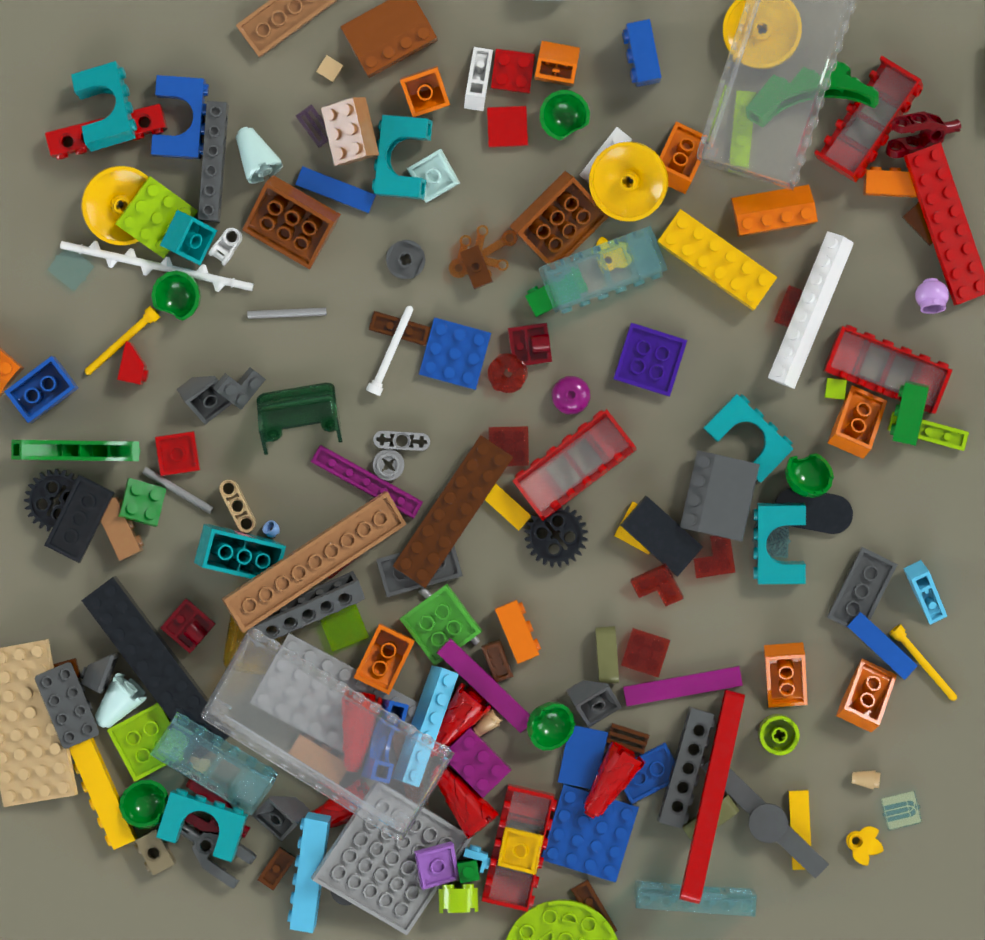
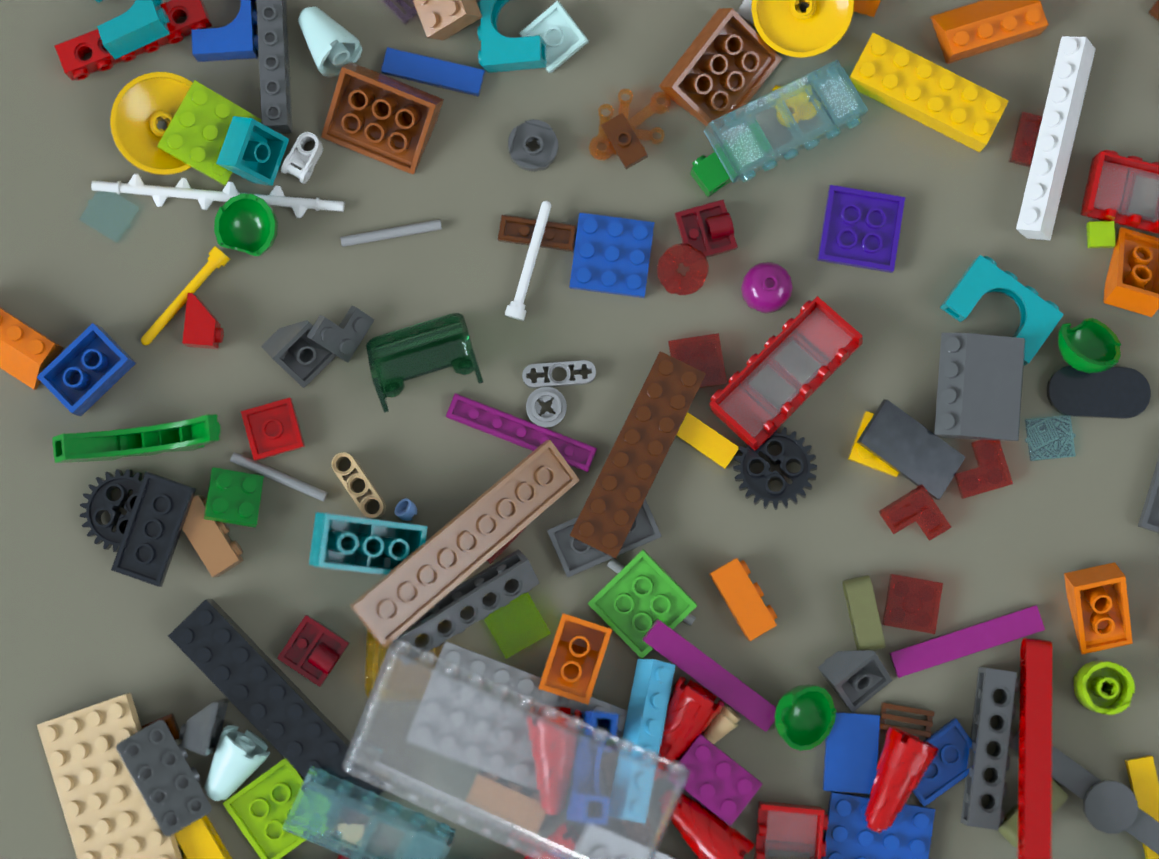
camera: 10 degrees left, 5 degrees down
(497, 661) = (722, 641): reddish brown plate -> none
(768, 518) = (1044, 409): teal arch -> none

